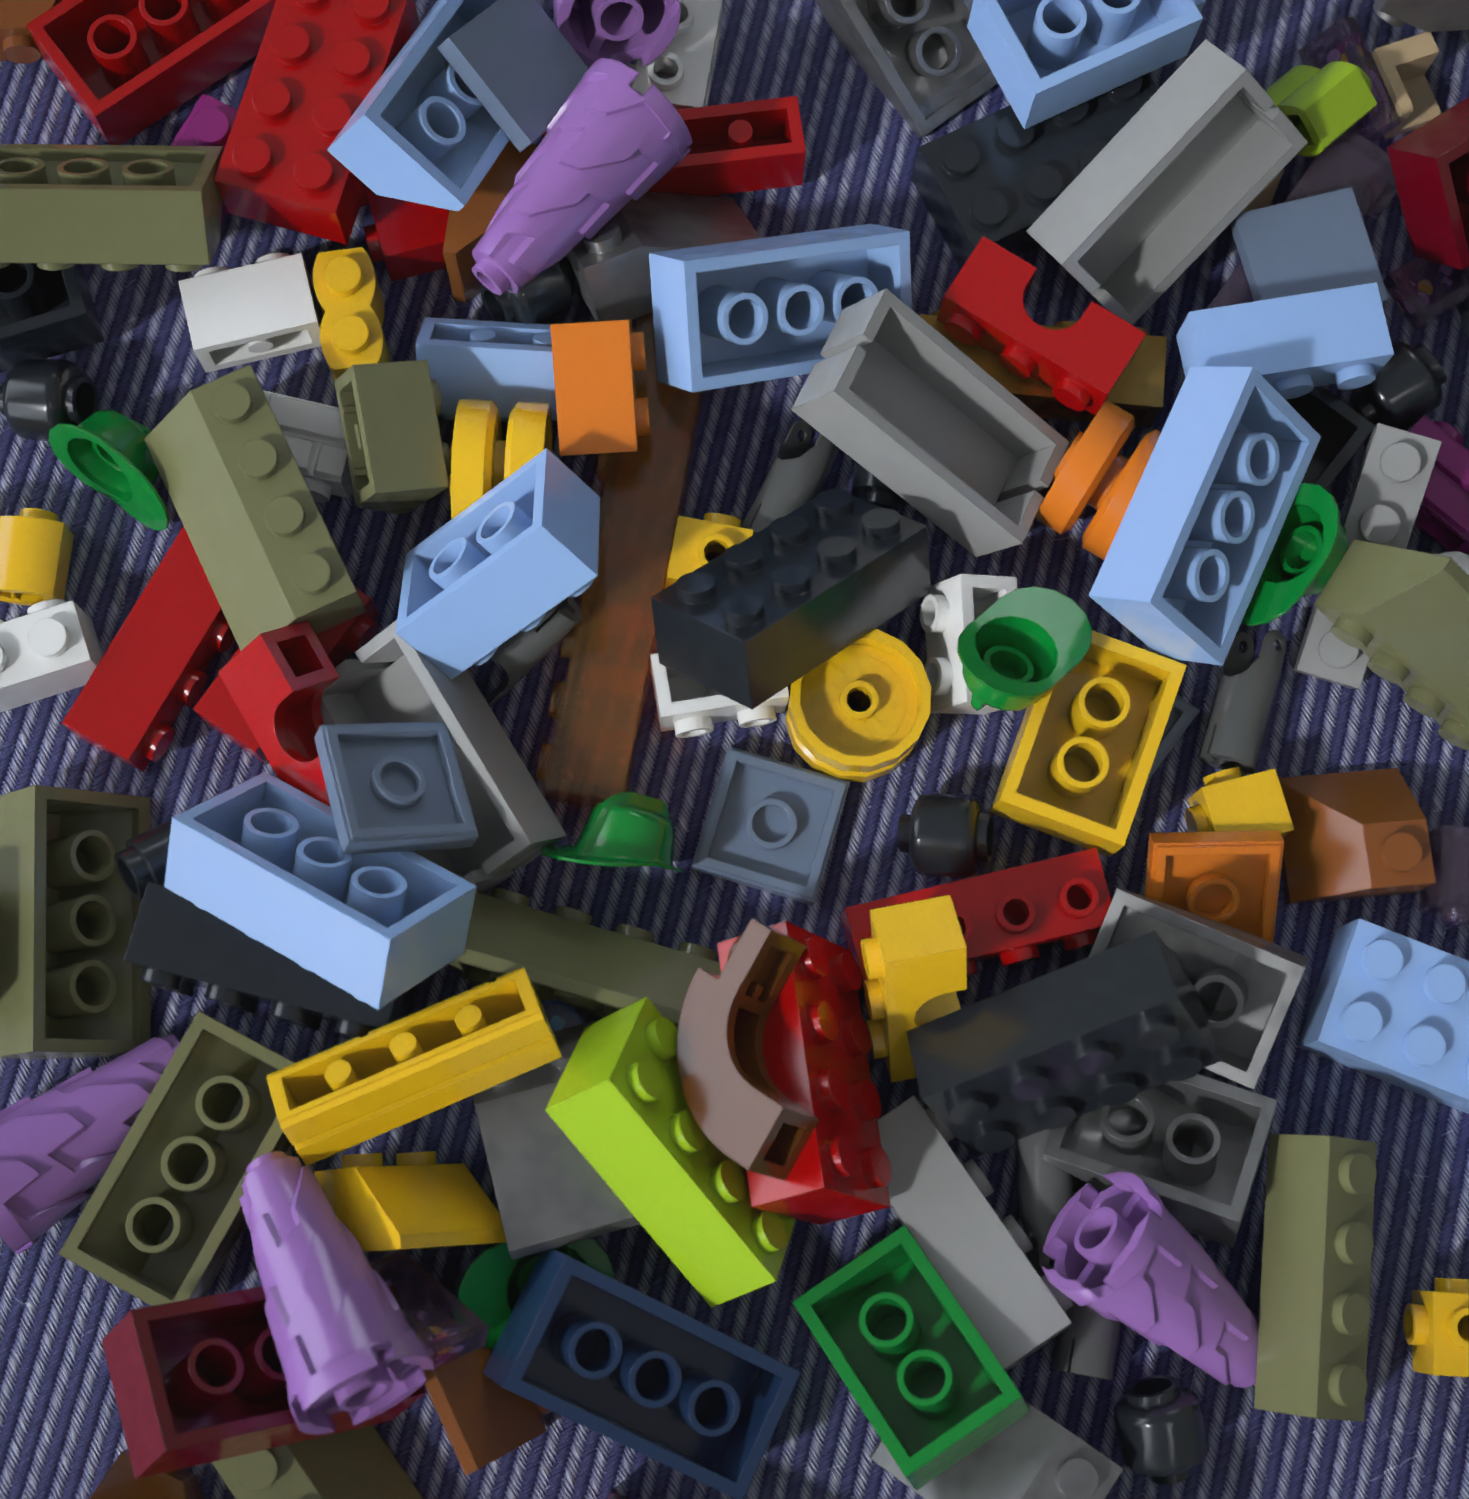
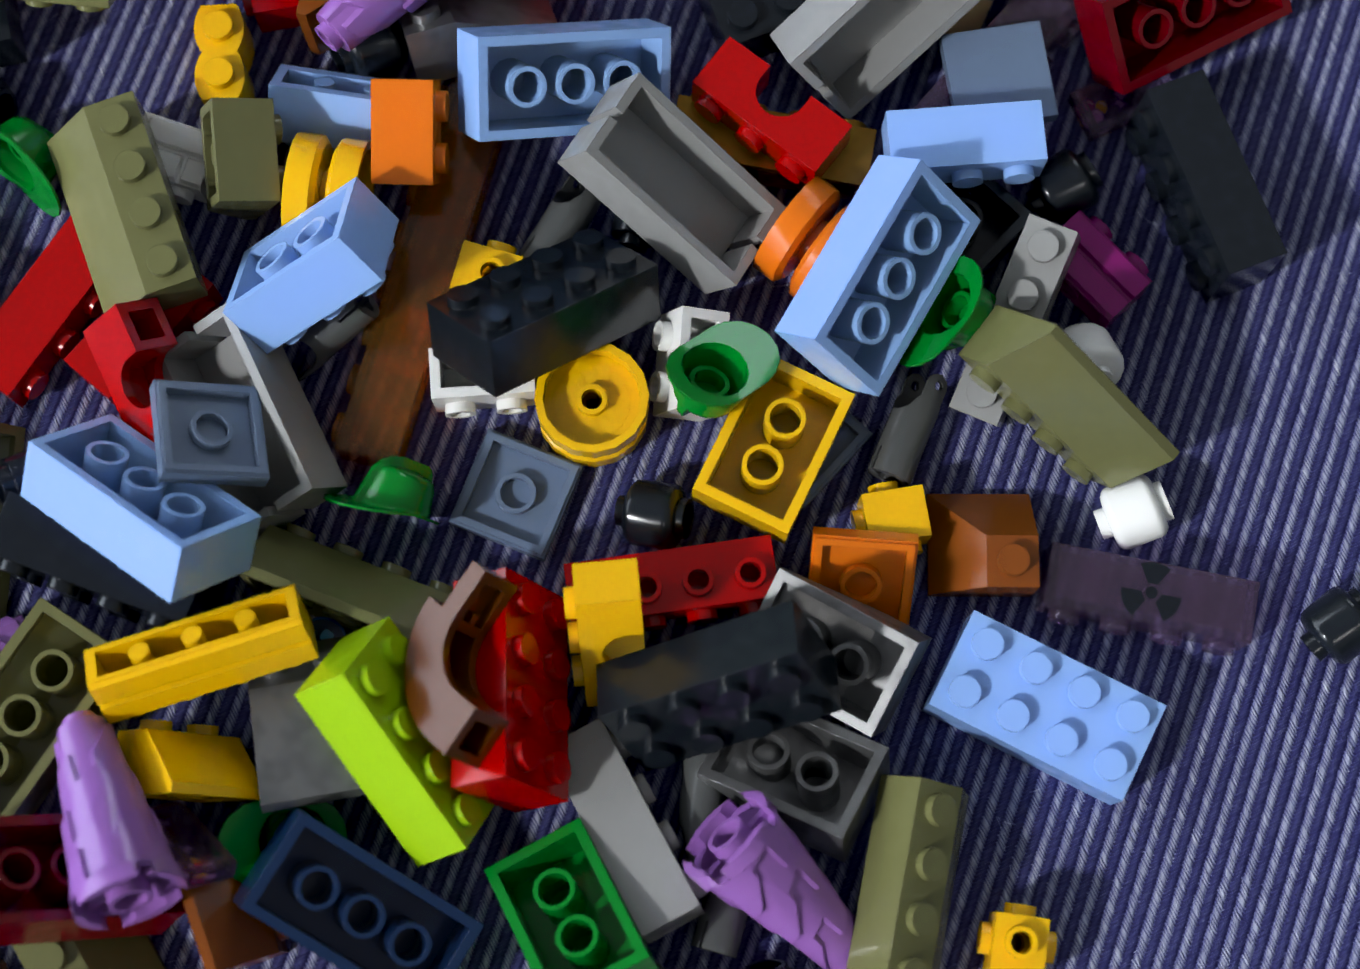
camera: 10 degrees right, 0 degrees up
(251, 311) = (143, 47): white brick -> none

